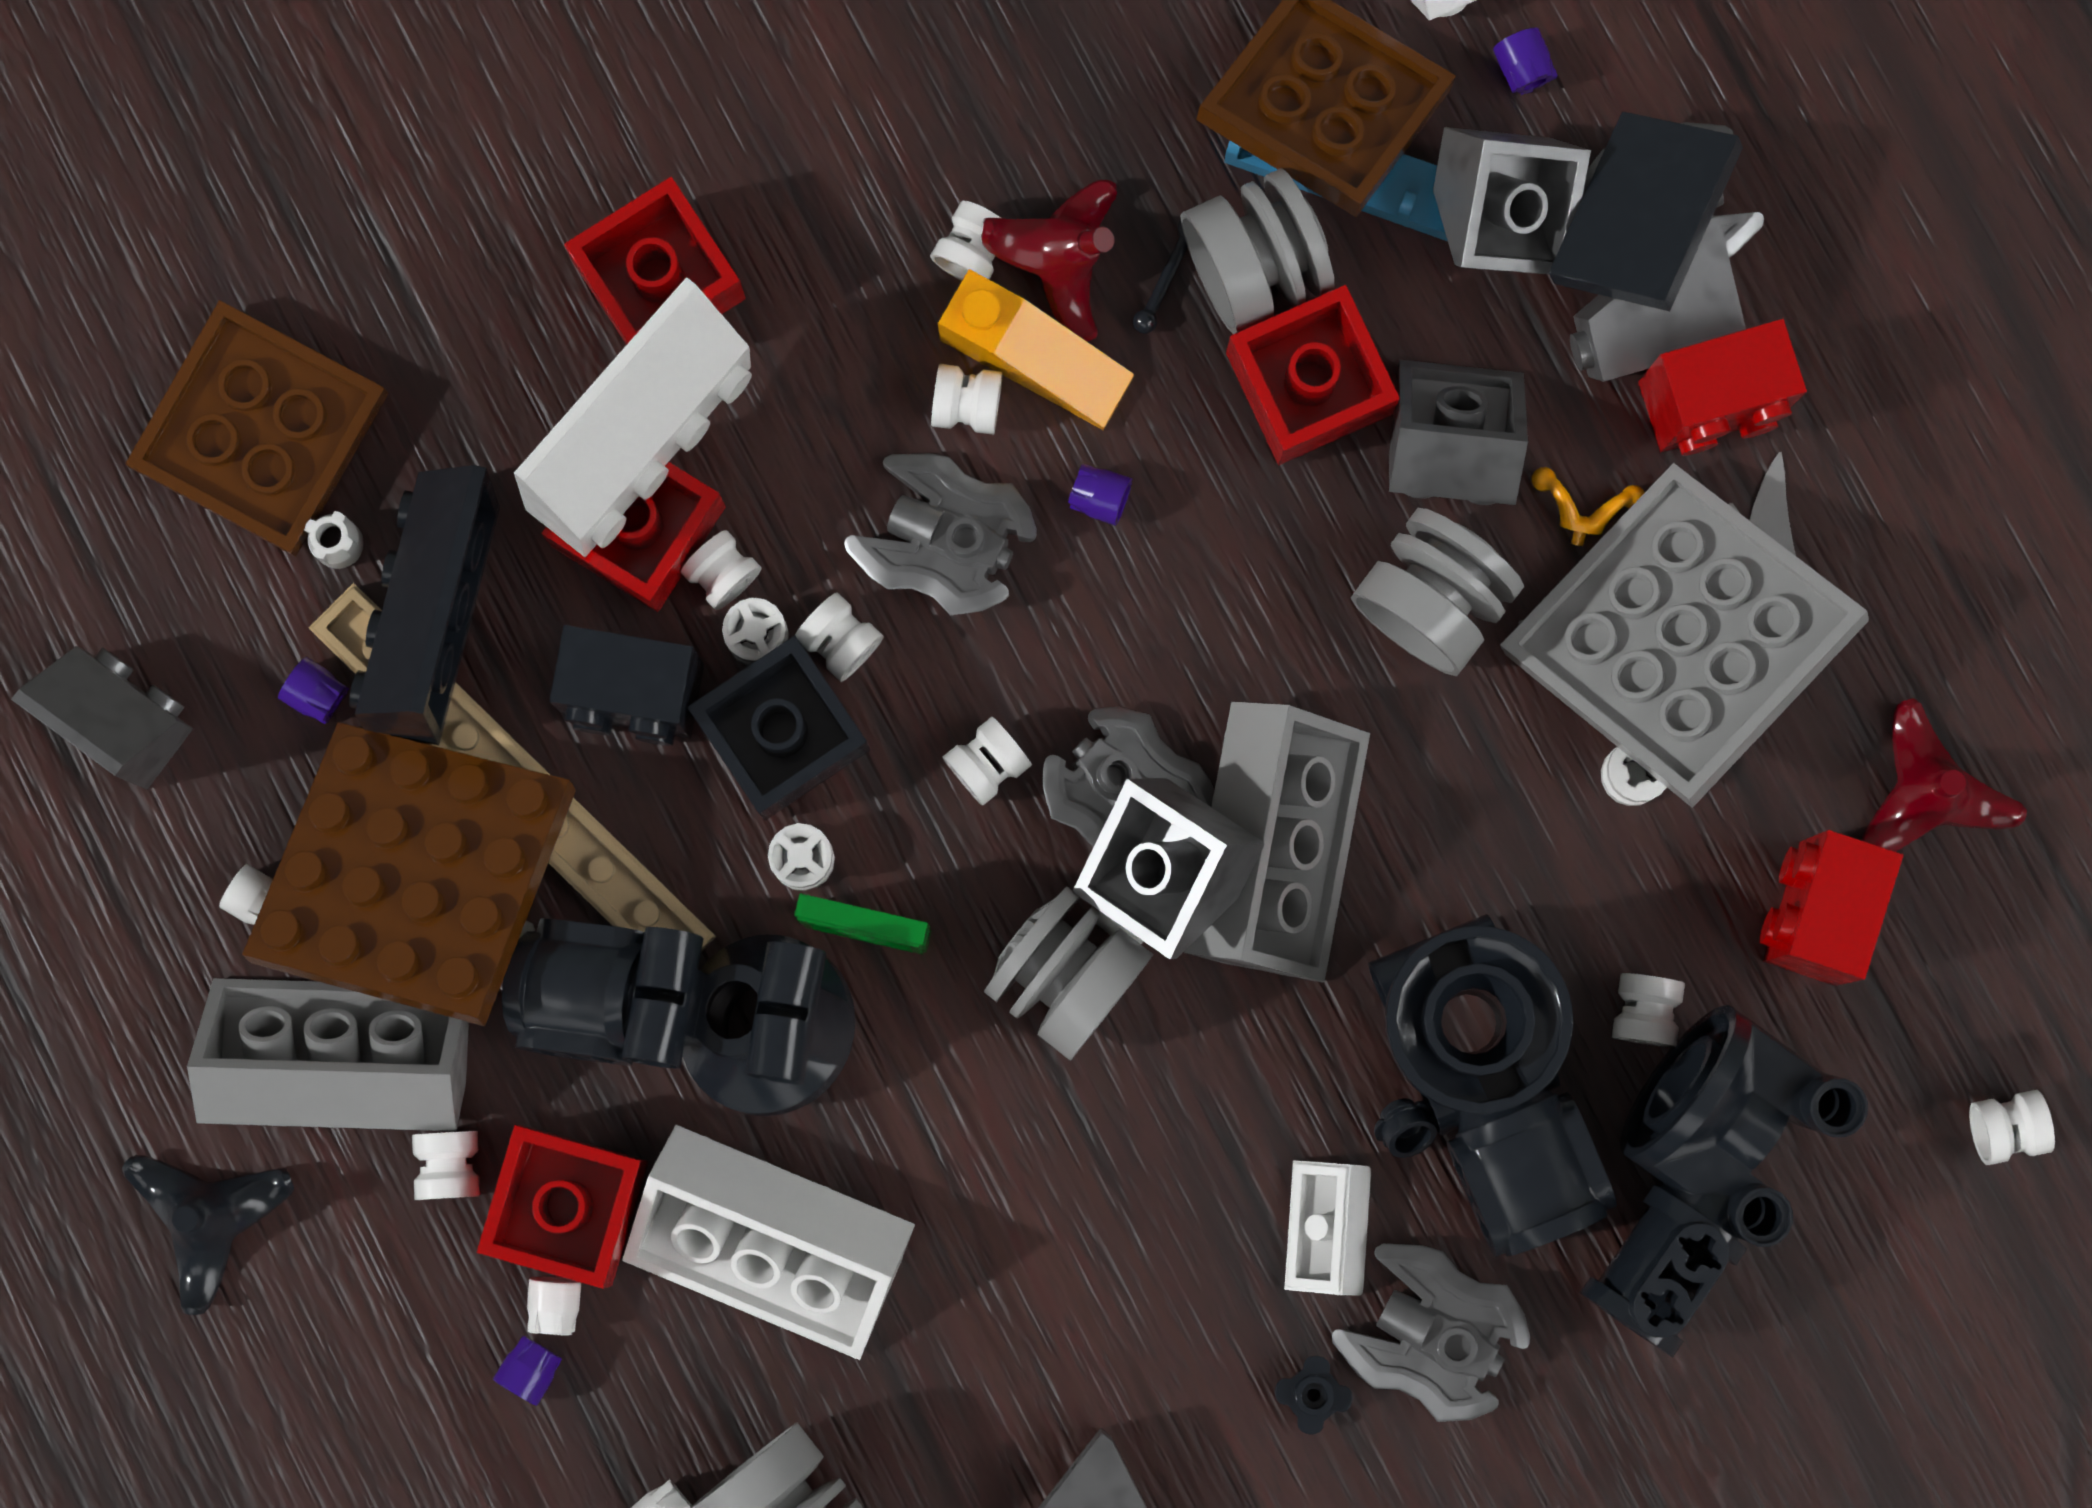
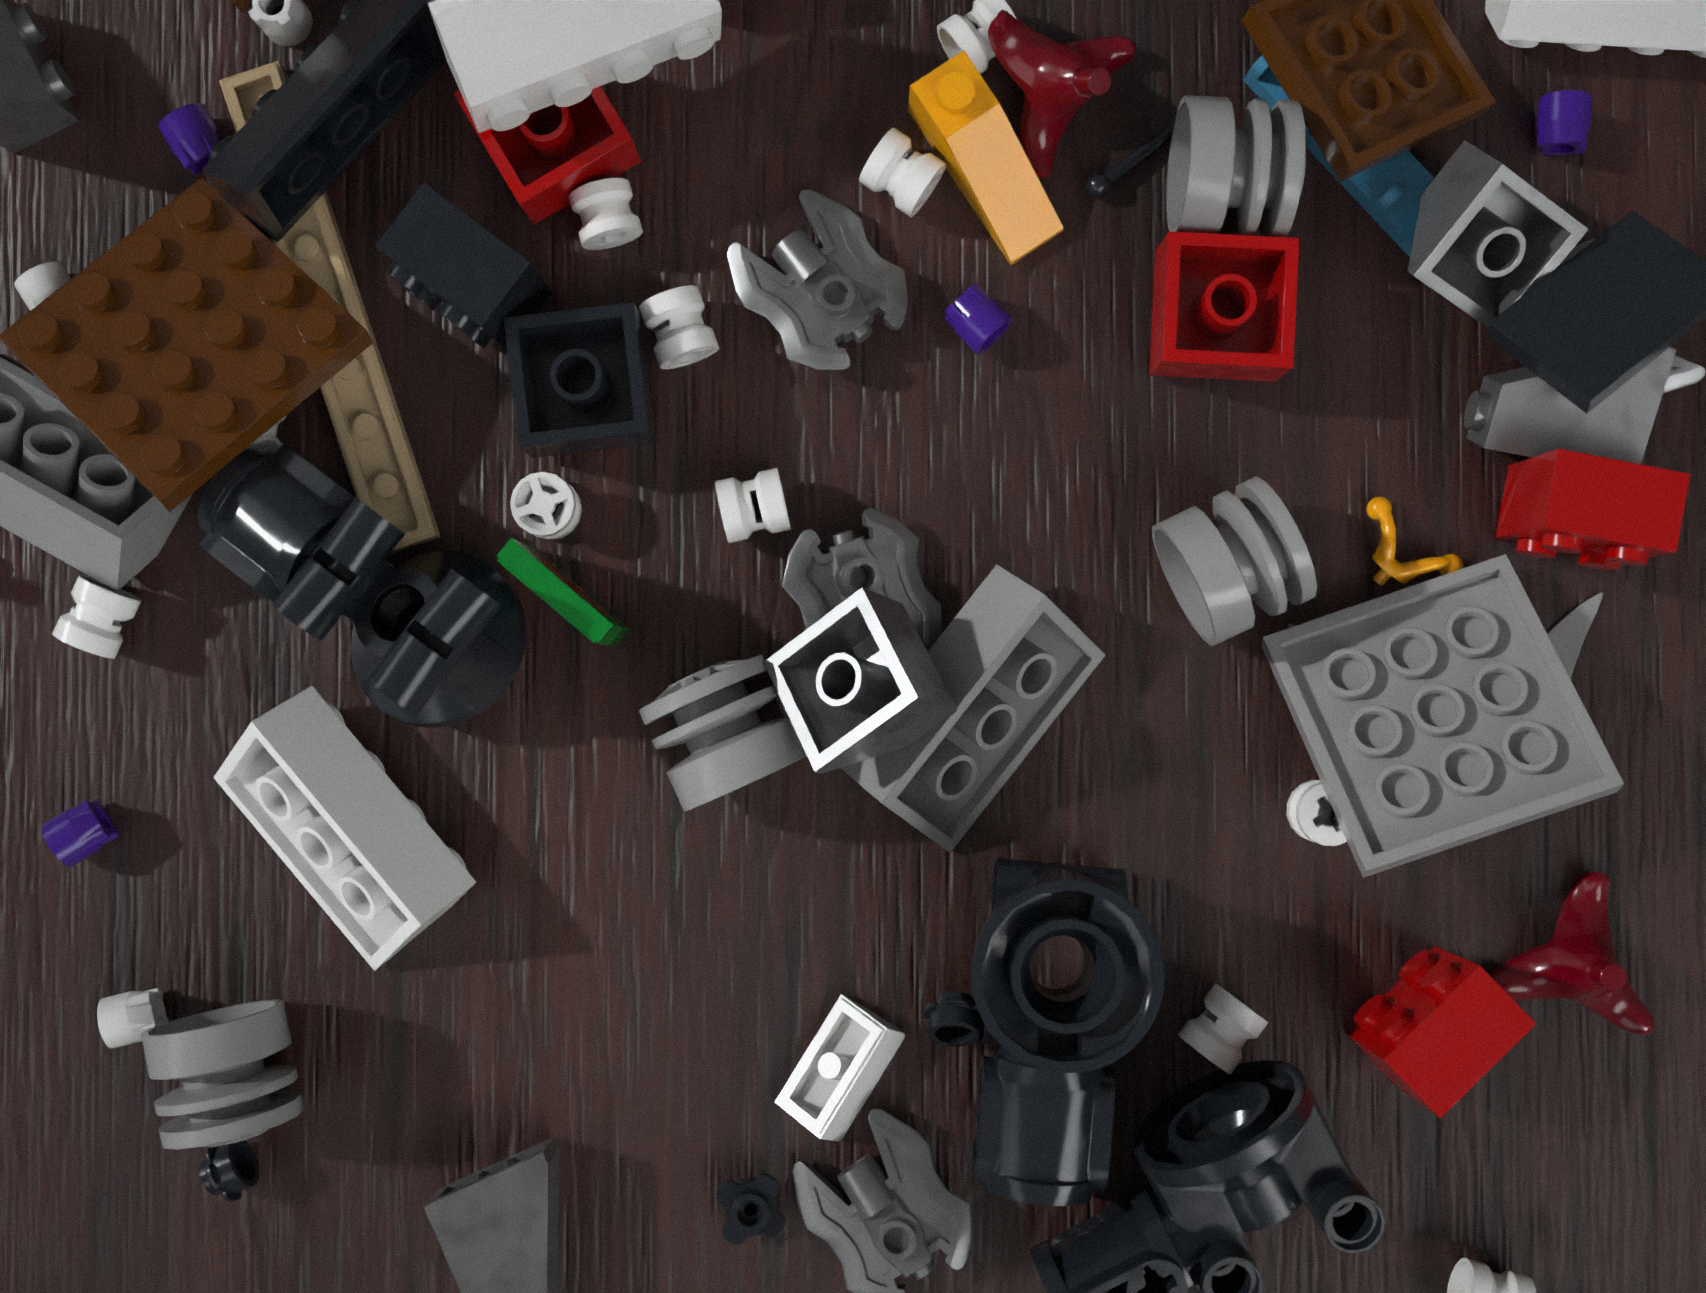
camera: 30 degrees right, 5 degrees up
(553, 1305) = (130, 786): white hose -> none
(562, 1206) = (172, 706): red brick -> none
(750, 622) = (607, 272): white wheel -> none
(1458, 433) = (1326, 429): flat silver slope -> none

